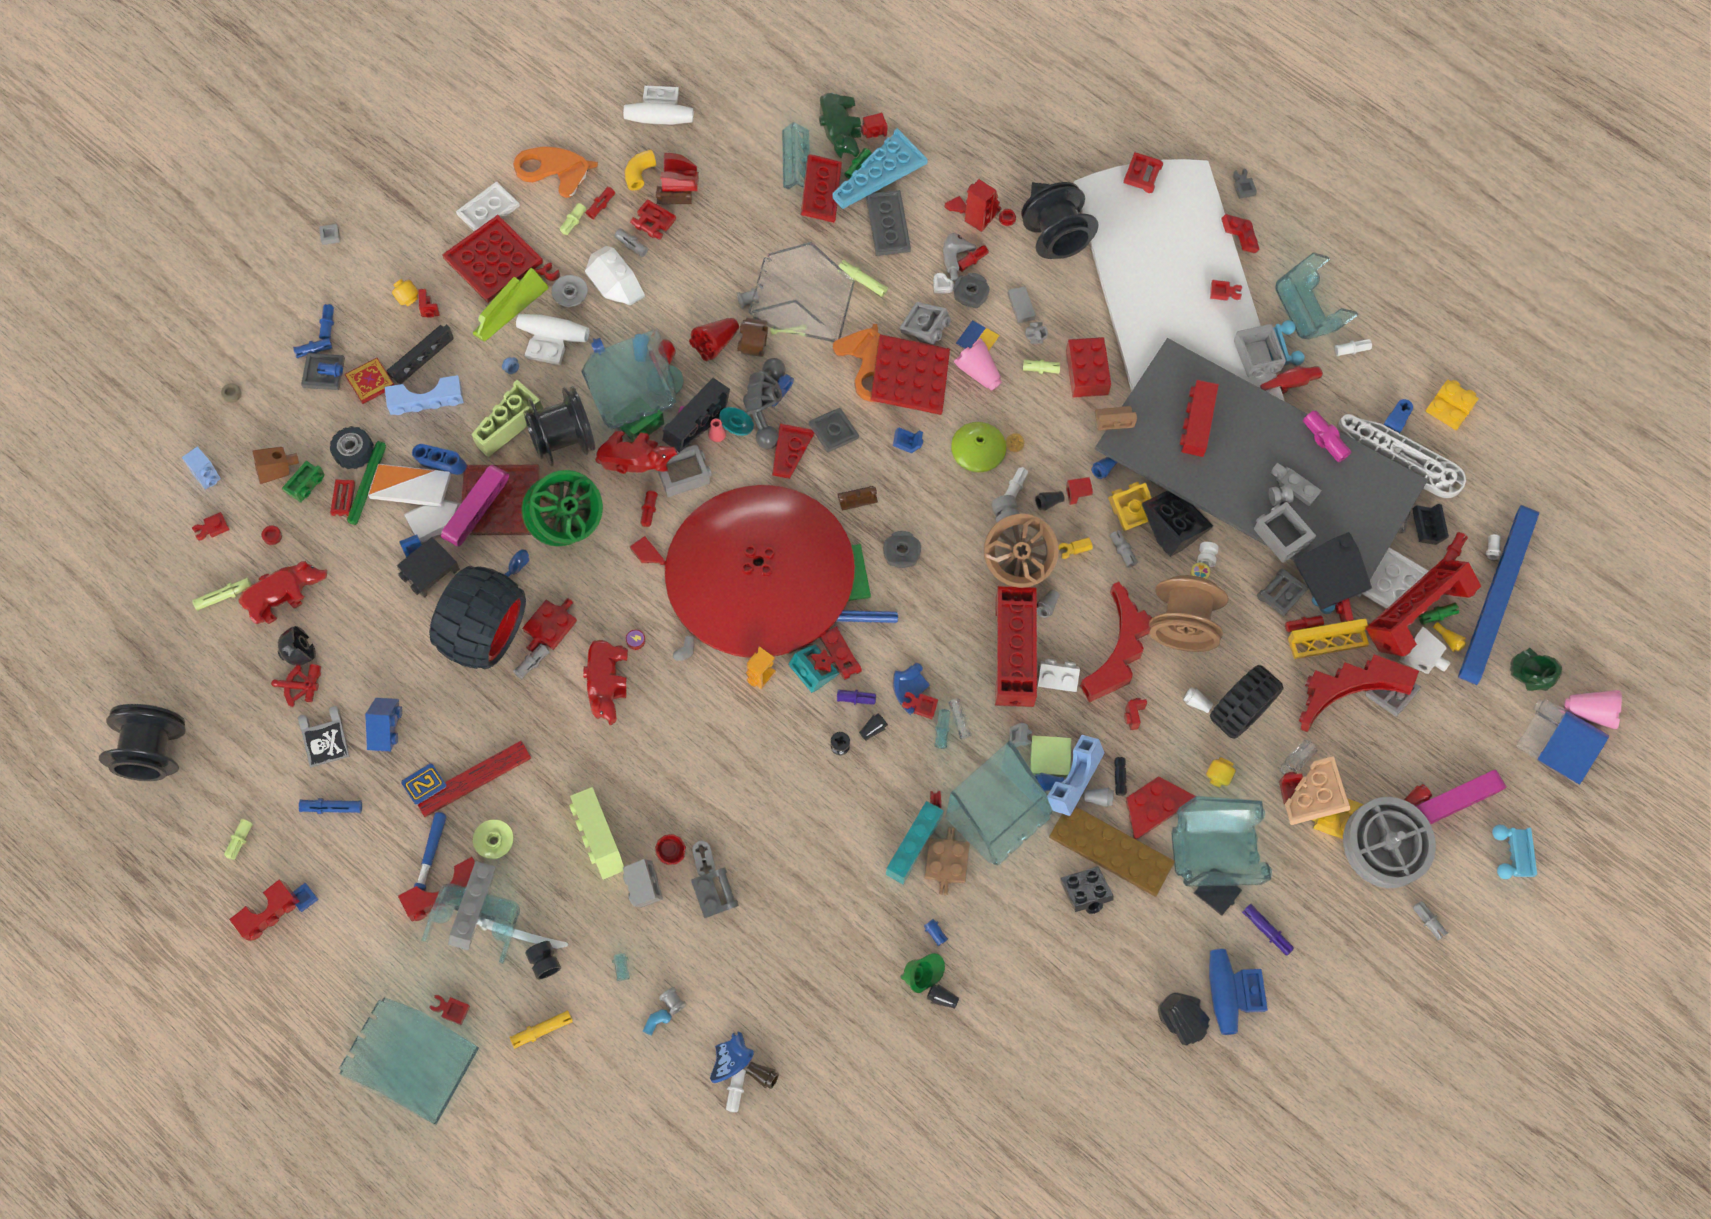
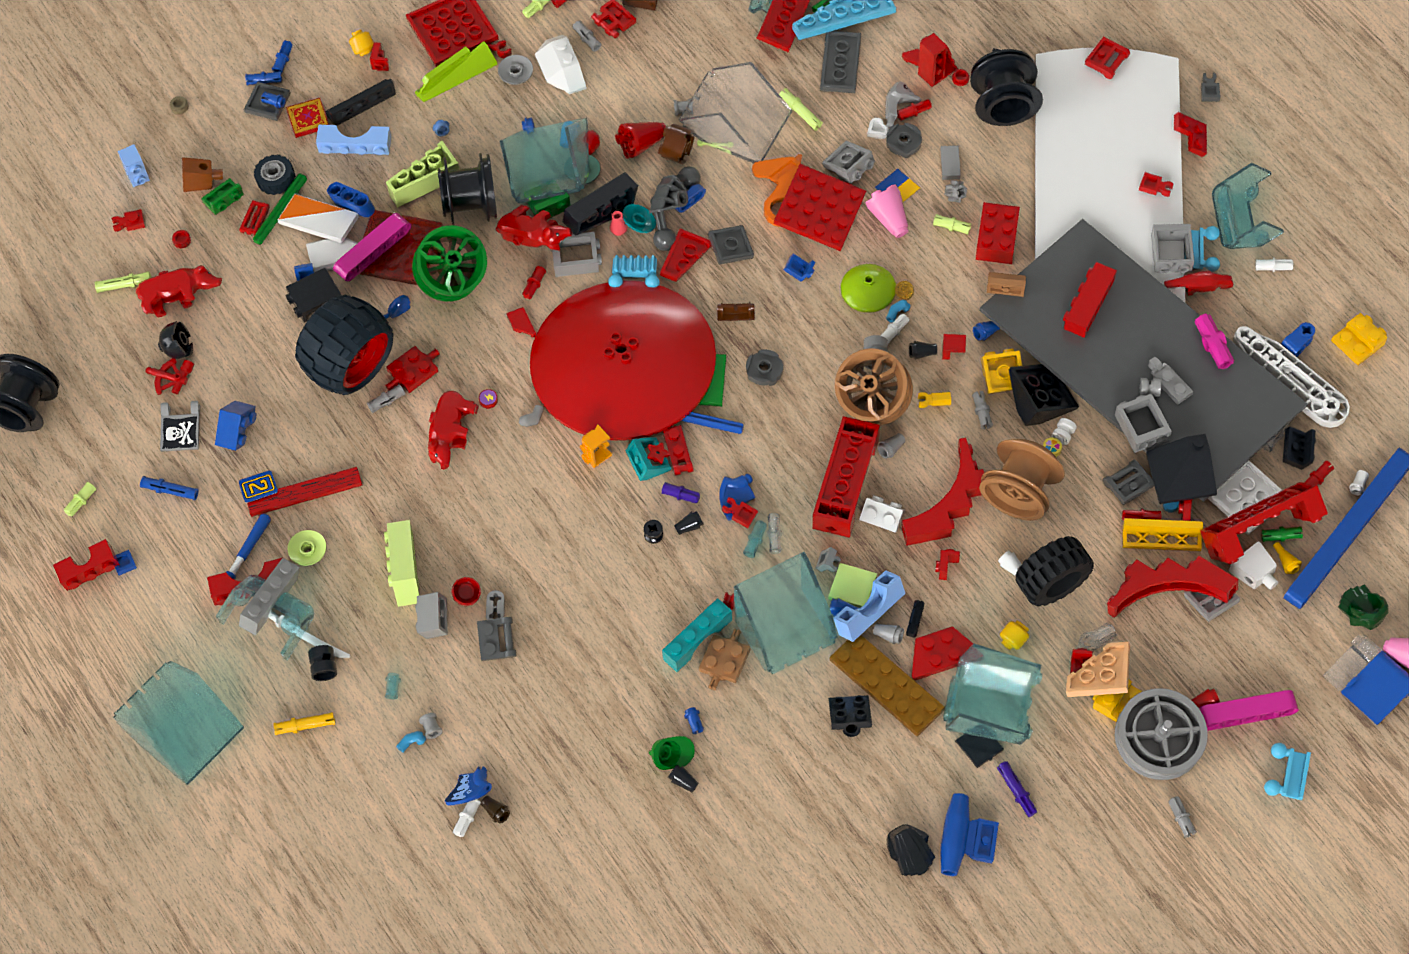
camera: 20 degrees right, 5 degrees down
(452, 1010) = (230, 689): red plate -> none
(549, 336) = (484, 108): white plate -> none
(744, 473) = (634, 267): none -> medium azure gear
(1015, 459) = (895, 308): none -> dark azure arm

